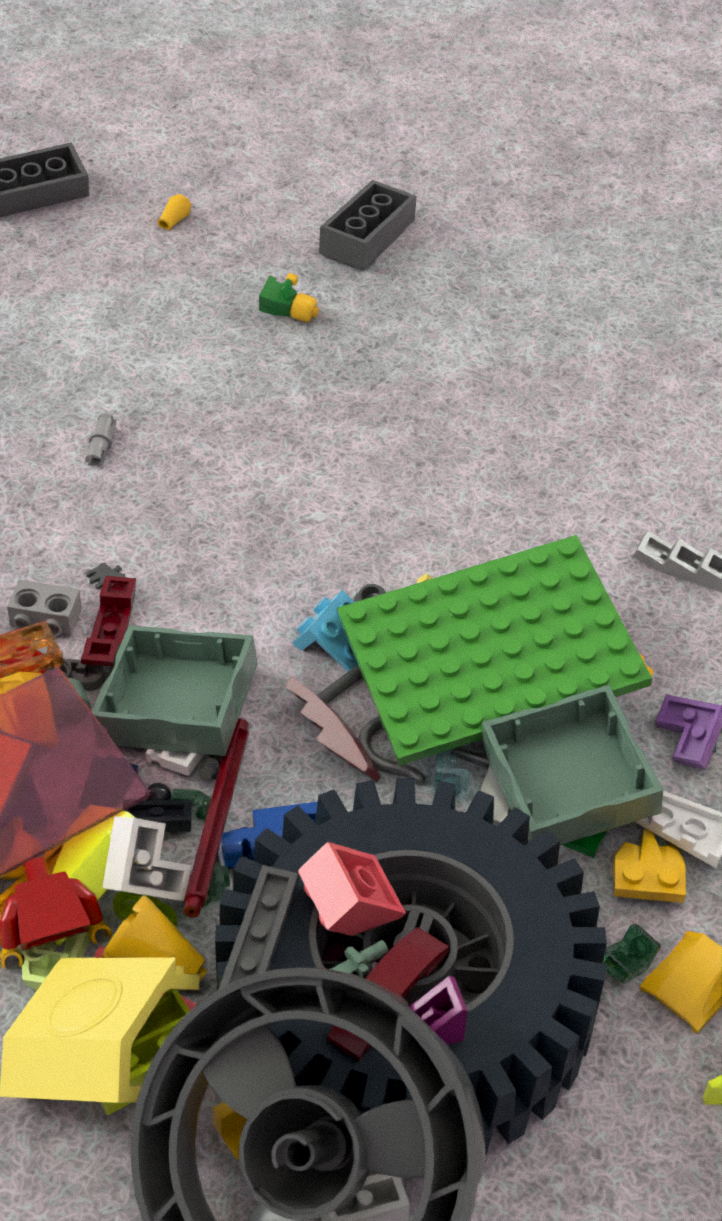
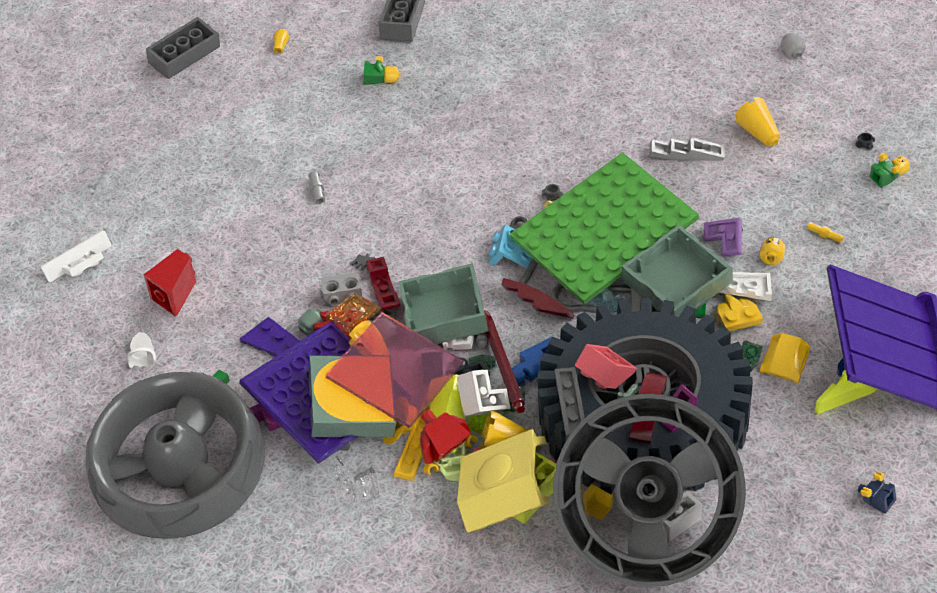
camera: 15 degrees left, 0 degrees up
(449, 562) = (552, 192): none -> dark grey plate

